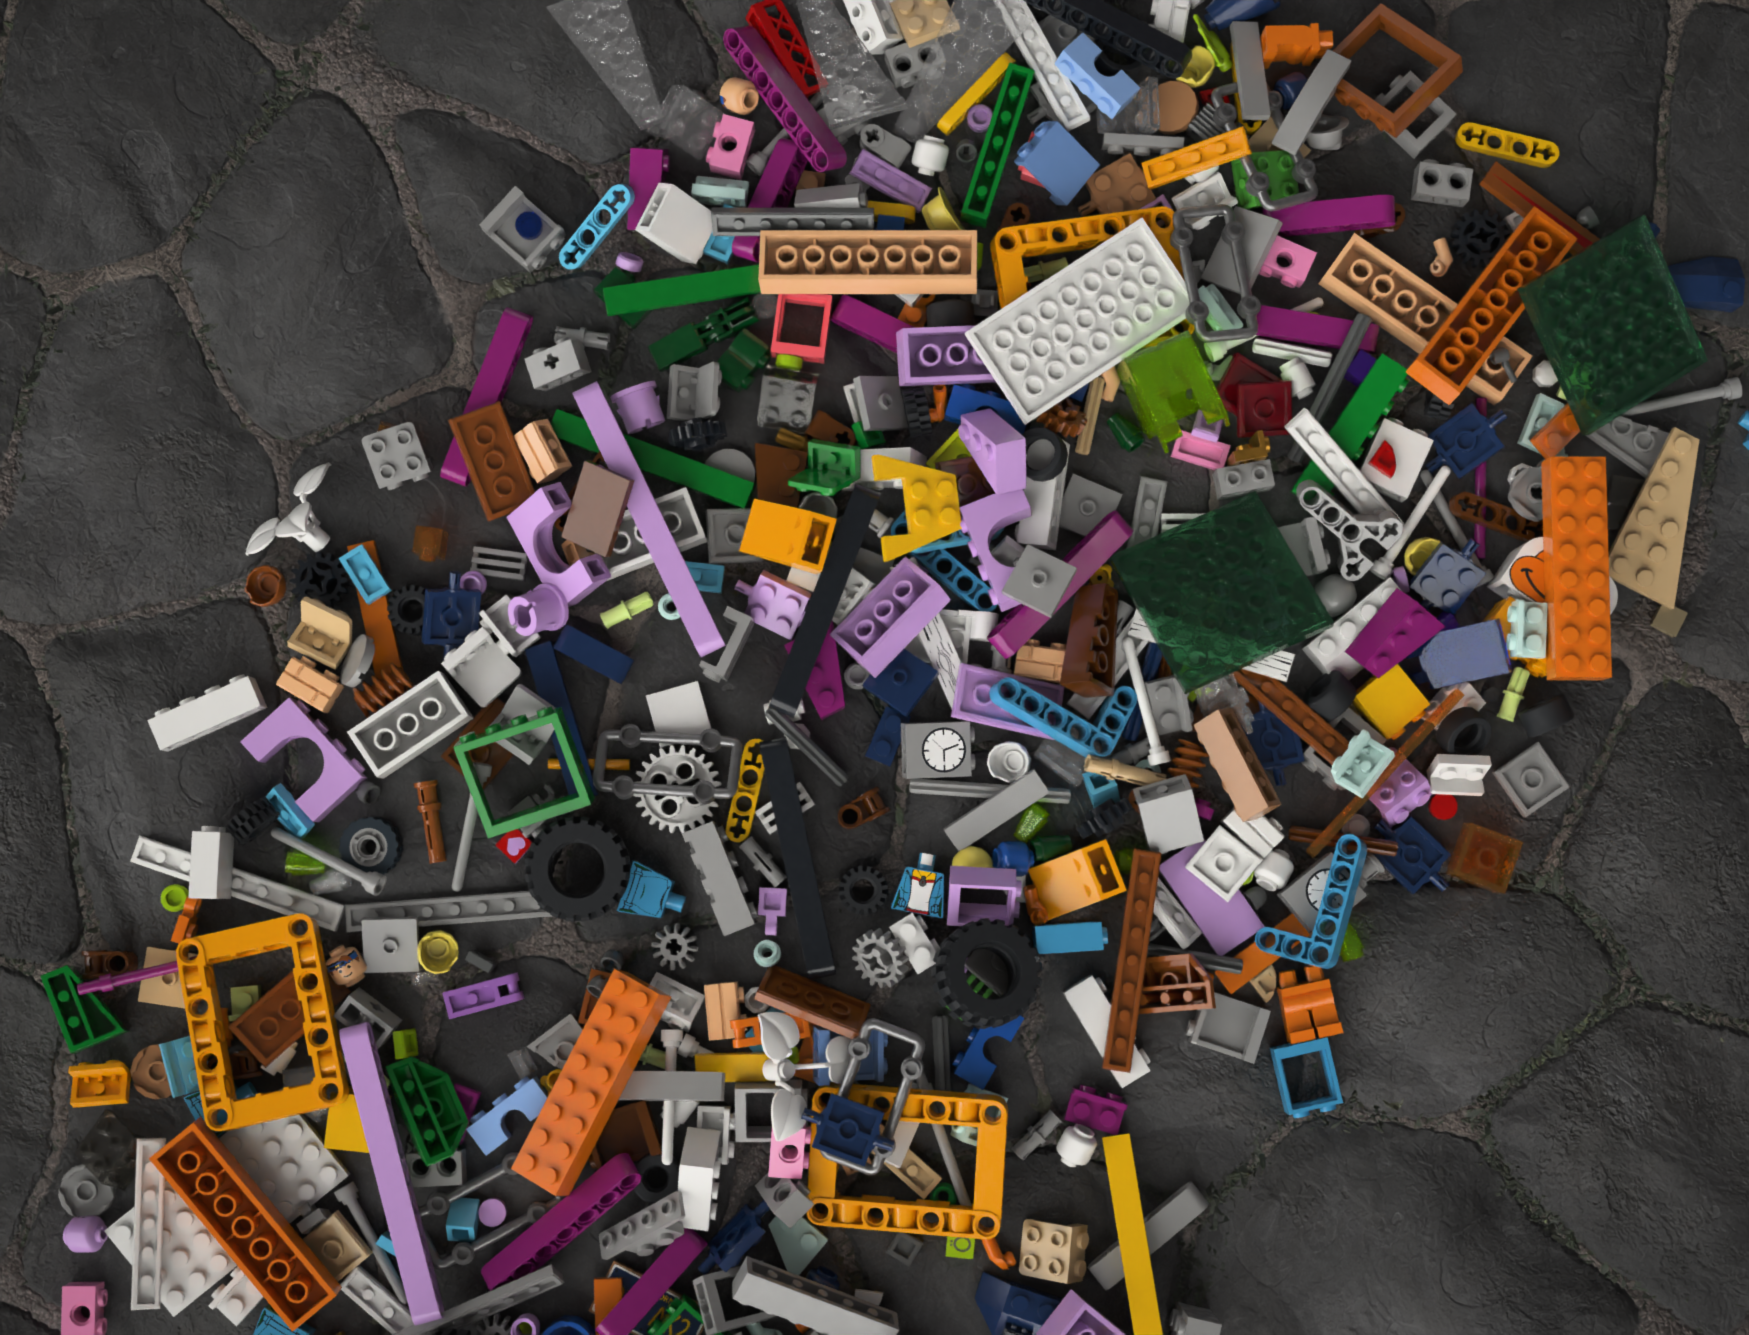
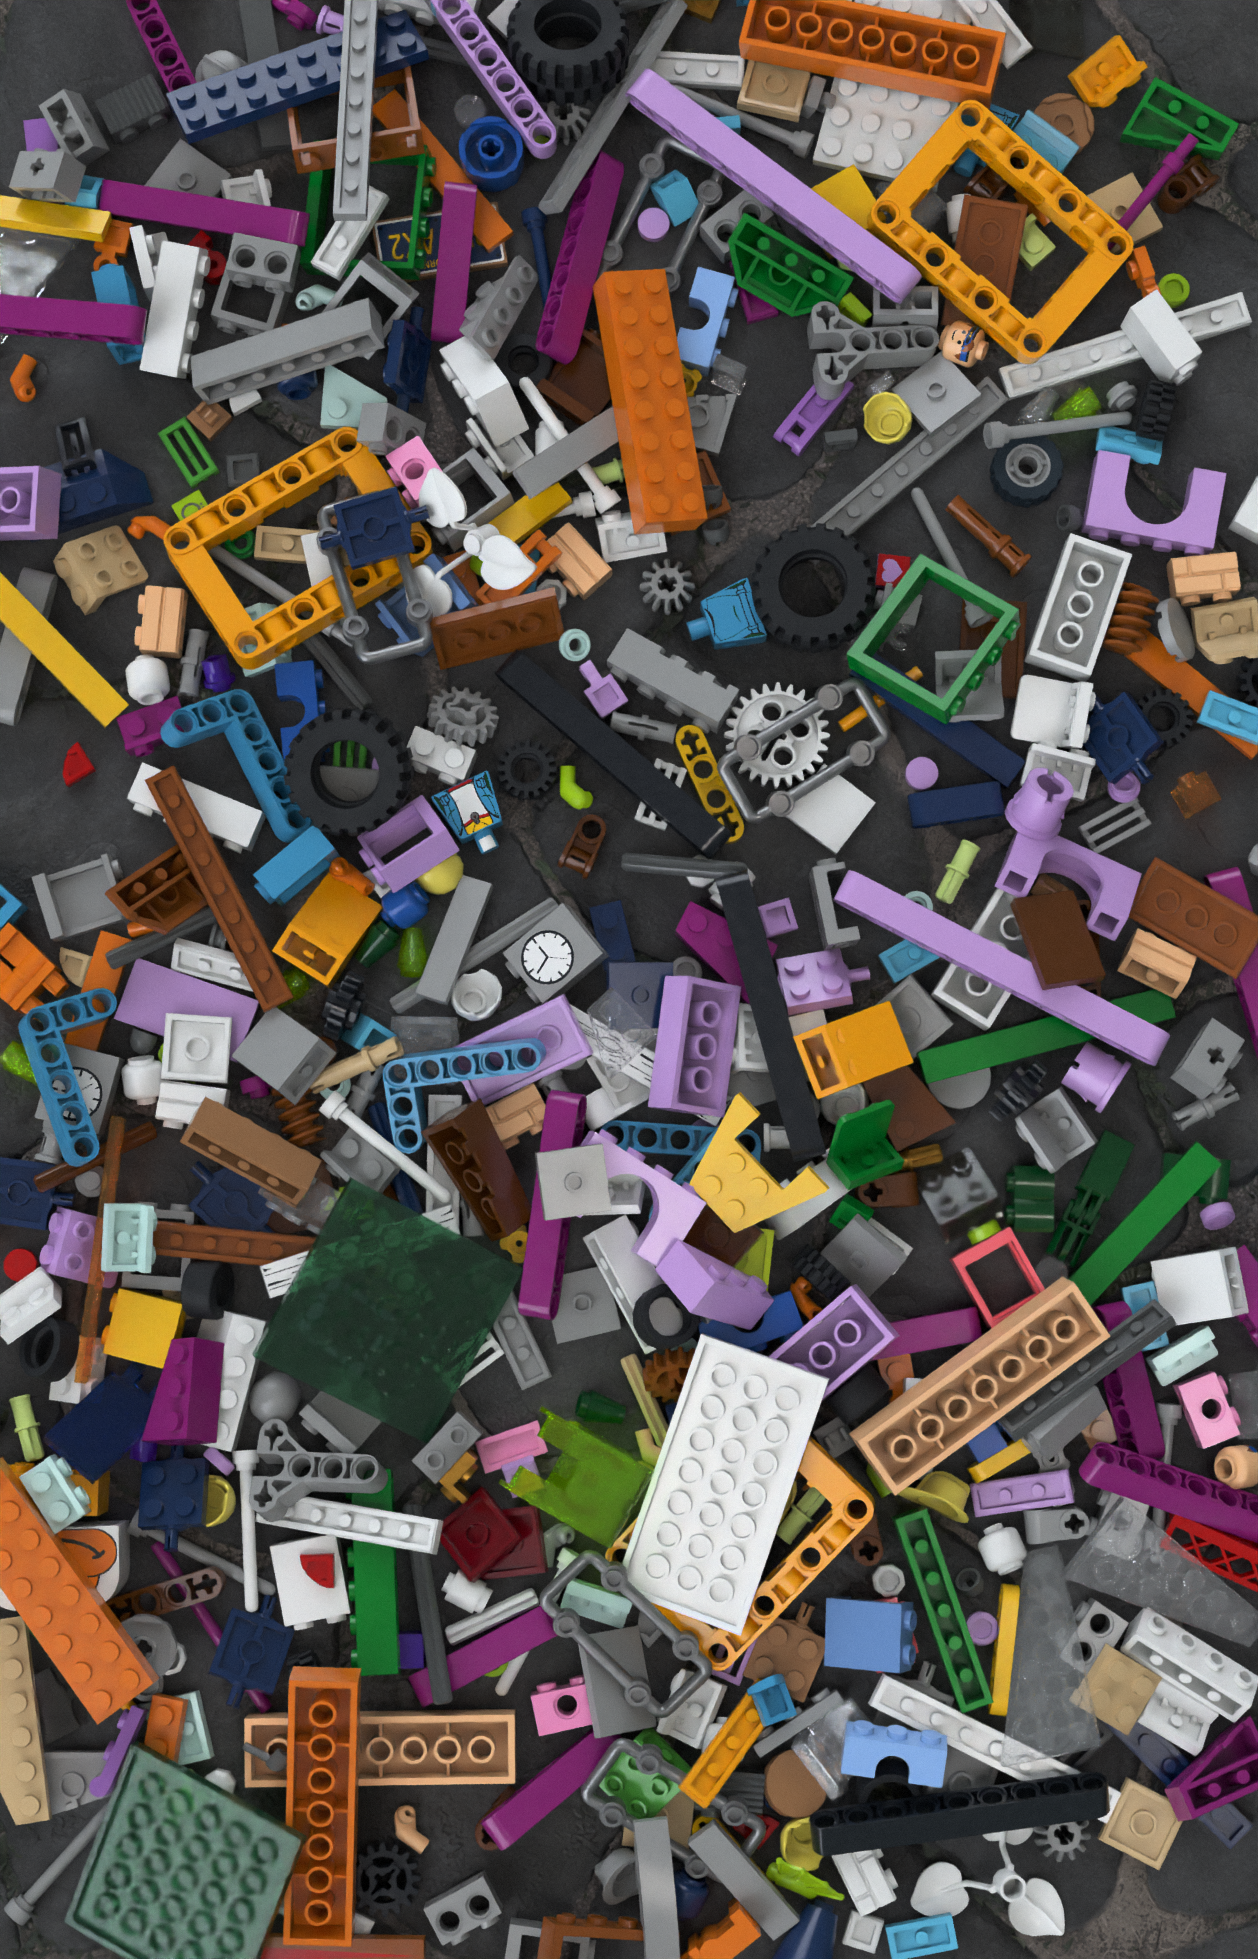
camera: 140 degrees right, 0 degrees up
(268, 849) = (1121, 396): none -> light grey plate
(422, 1033) = (844, 335): none -> light grey beam
(574, 1273) = (535, 222): none -> dark blue piece
(600, 693) = (921, 773): none -> lavender tile
(768, 667) = (777, 918): none -> lavender tile
(844, 854) = (571, 791): none -> lime arm
(902, 1302) = (209, 419): none -> medium nougat tile
(934, 663) = (617, 1031): none -> clear wing
(935, 1264) = (202, 474): none -> bright green tile
(1017, 189) = (888, 1580): none -> white tile
(1025, 1114) = (217, 673): none -> dark purple hose
(1038, 1179) = (162, 621): none -> light nougat brick
(1045, 1042) = (248, 752): none -> dark azure beam
(1149, 166) = (772, 1699): none -> dark azure tile
(1167, 1122) = (76, 765): none -> red tile
(1601, 438) = (116, 1752): none -> medium lavender plate

